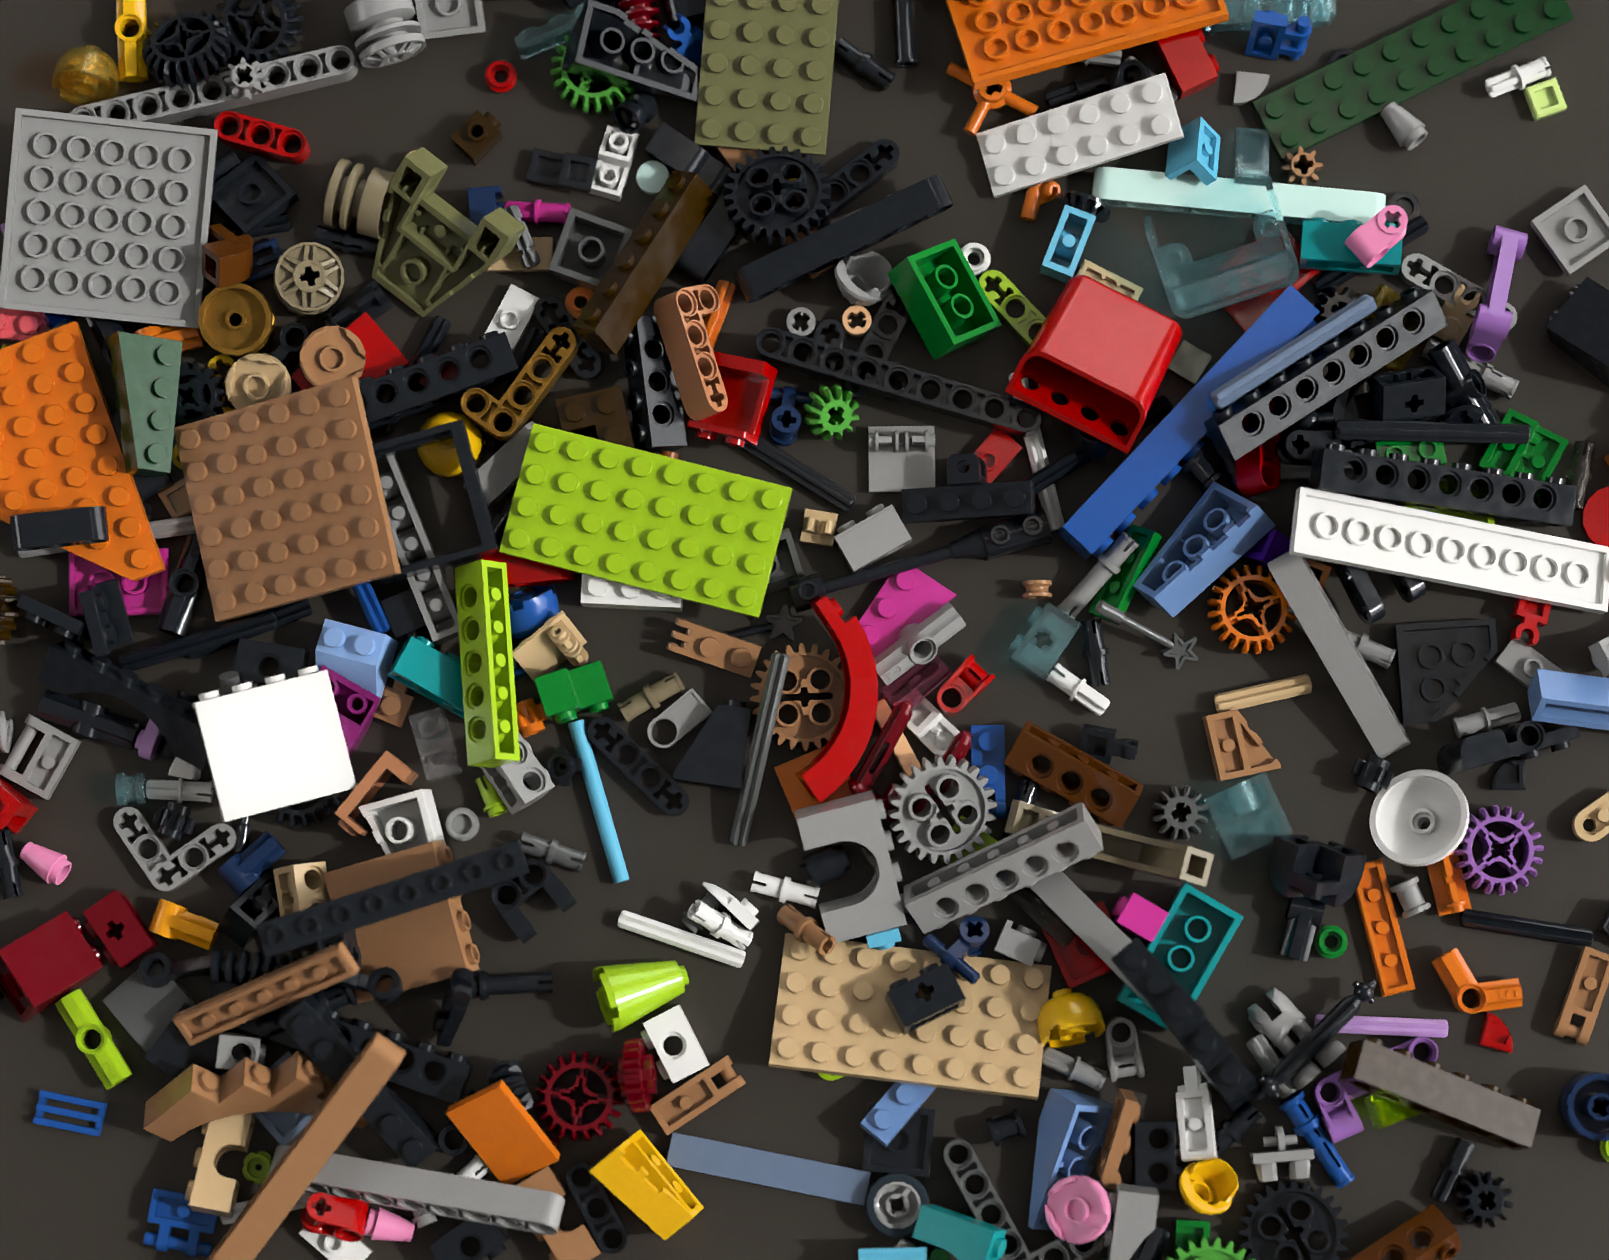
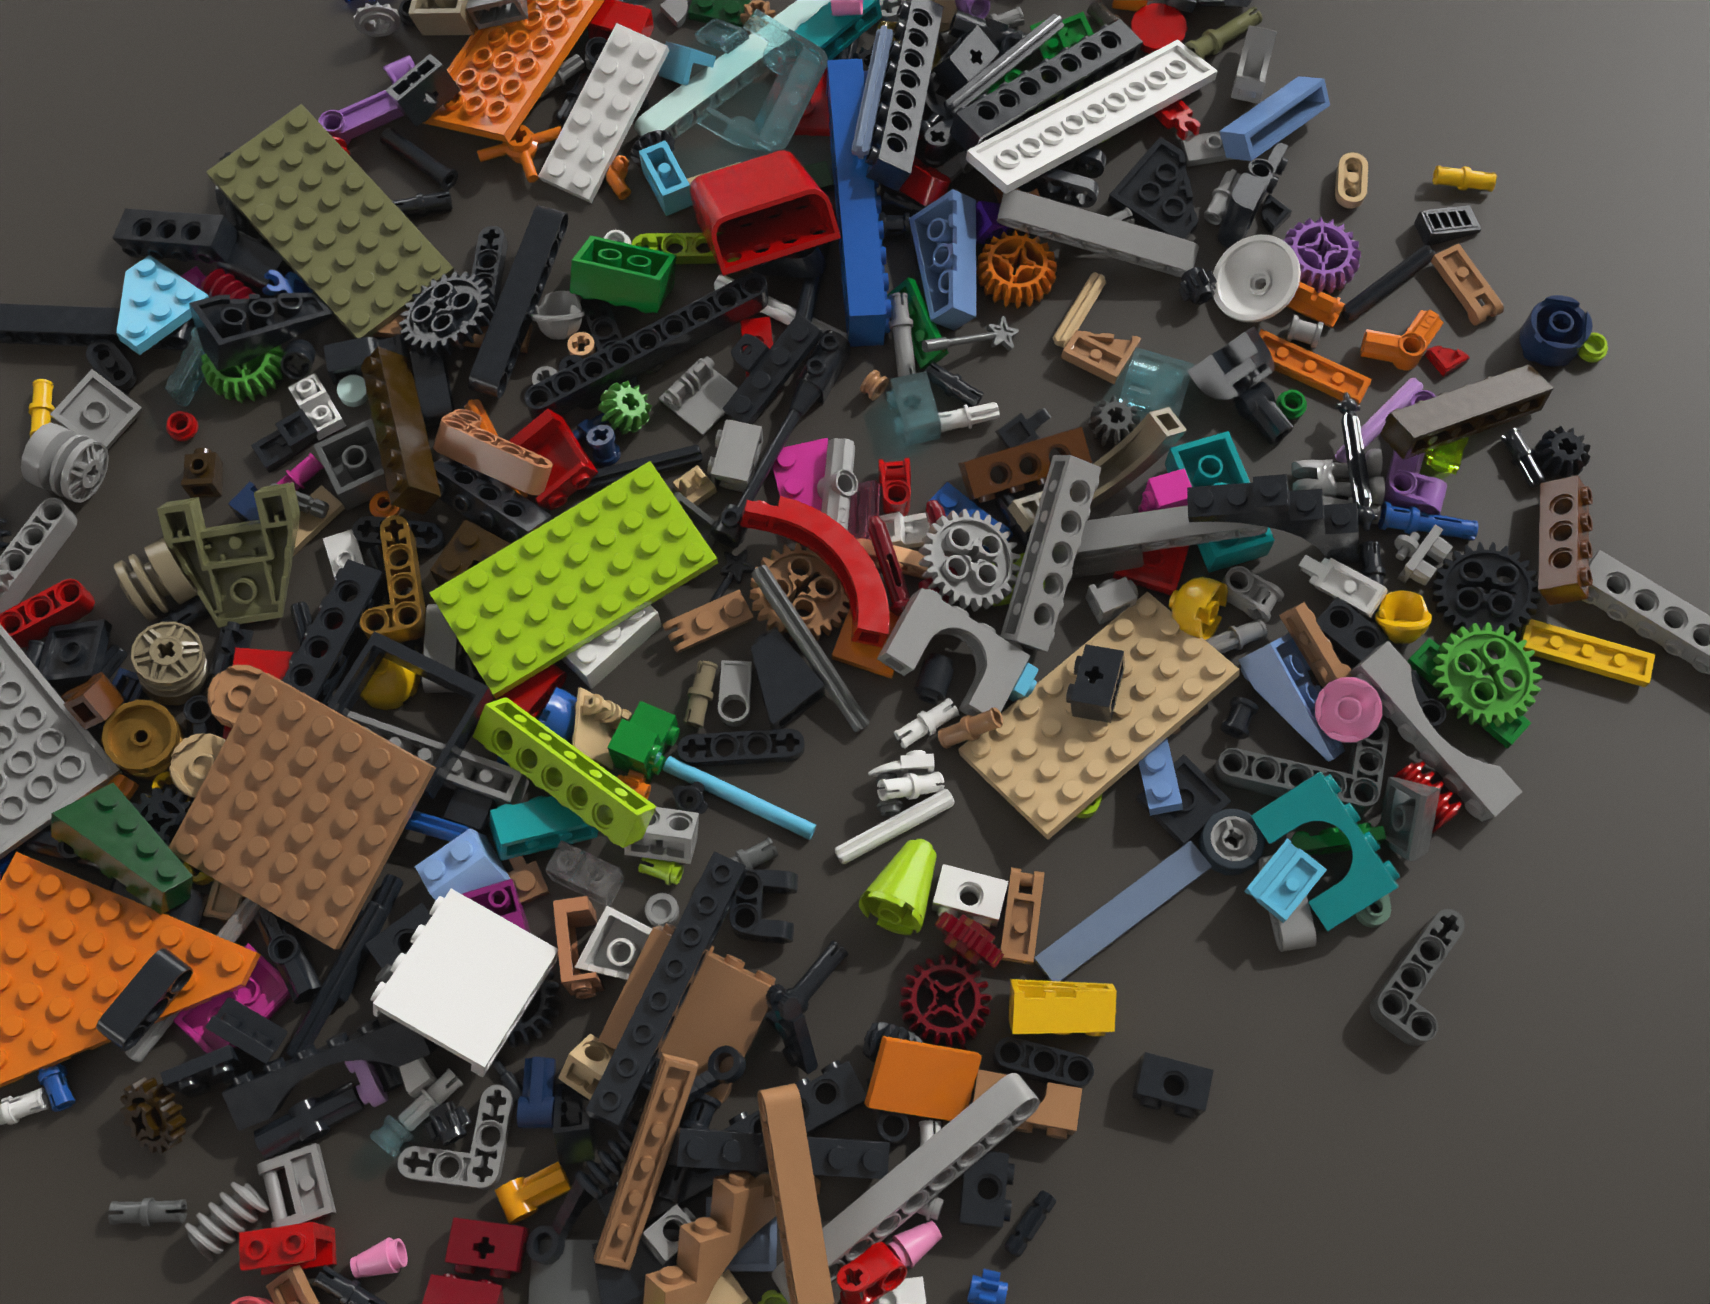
camera: 50 degrees left, 15 degrees down
(970, 942) = (1080, 631): dark blue piece -> none

